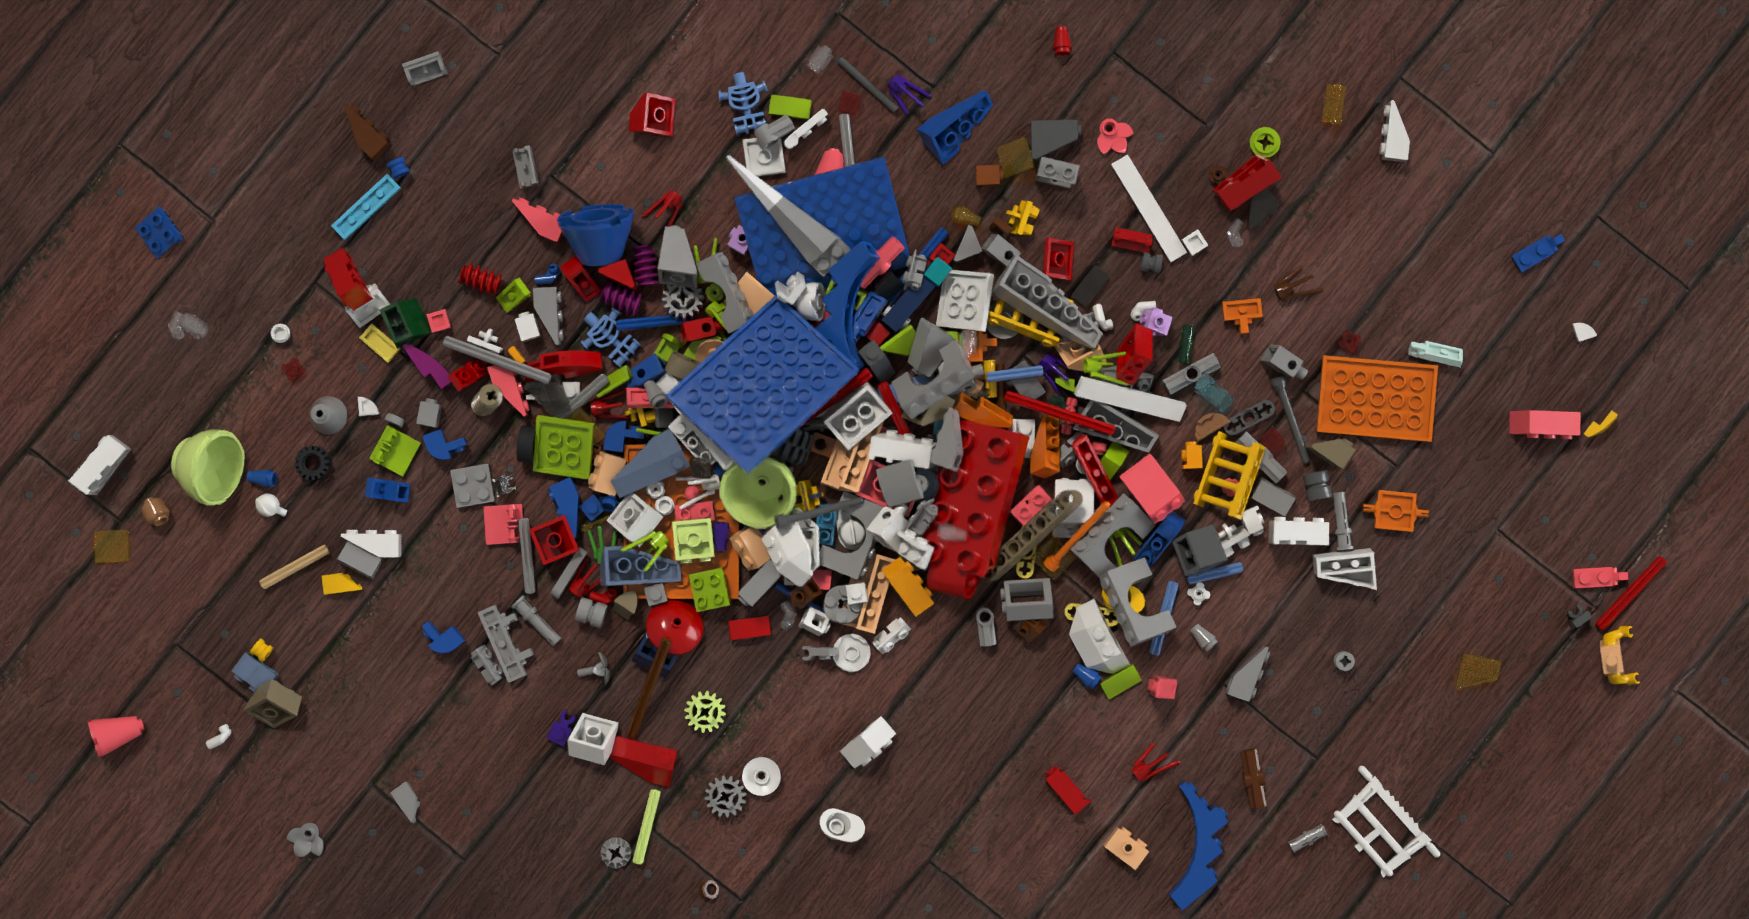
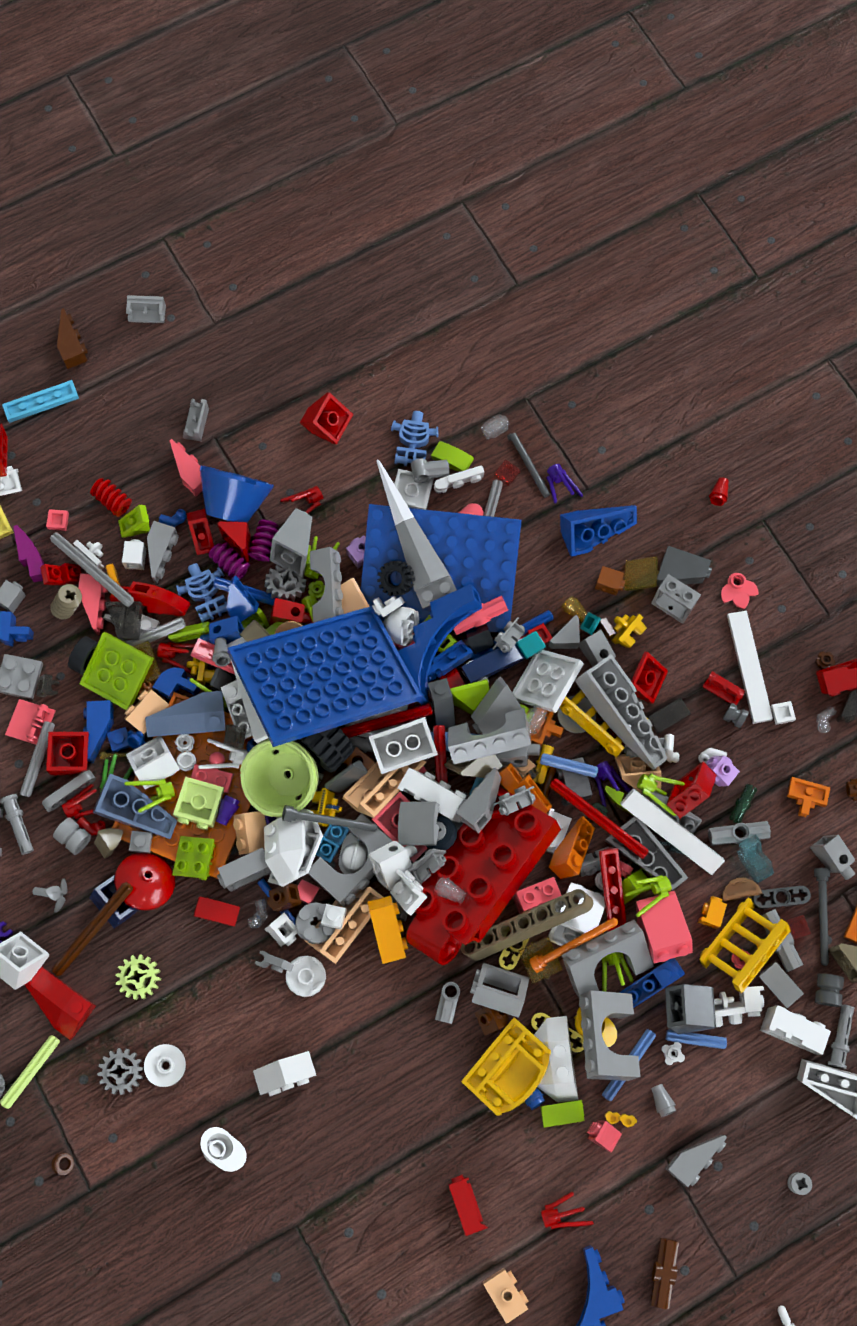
camera: 20 degrees right, 15 degrees down
(398, 168) = (83, 379): blue wheel -> none
(405, 321) = (26, 507): dark green slope -> none
(650, 335) = (240, 600): none -> blue slope
(781, 267) = (385, 580): none -> black tyre
(817, 463) = (347, 777): none -> dark grey slope
(898, 631) = (360, 972): white hinge -> none
(973, 434) = (522, 797): none -> light grey hinge
(985, 226) = (590, 623): none -> teal slope
(1060, 663) = (509, 1069): none -> yellow slope
(1071, 403) = (599, 838): coral axle -> none
(1134, 454) = (660, 886): none -> lime plant
(1176, 665) = (614, 1118): none -> yellow piece

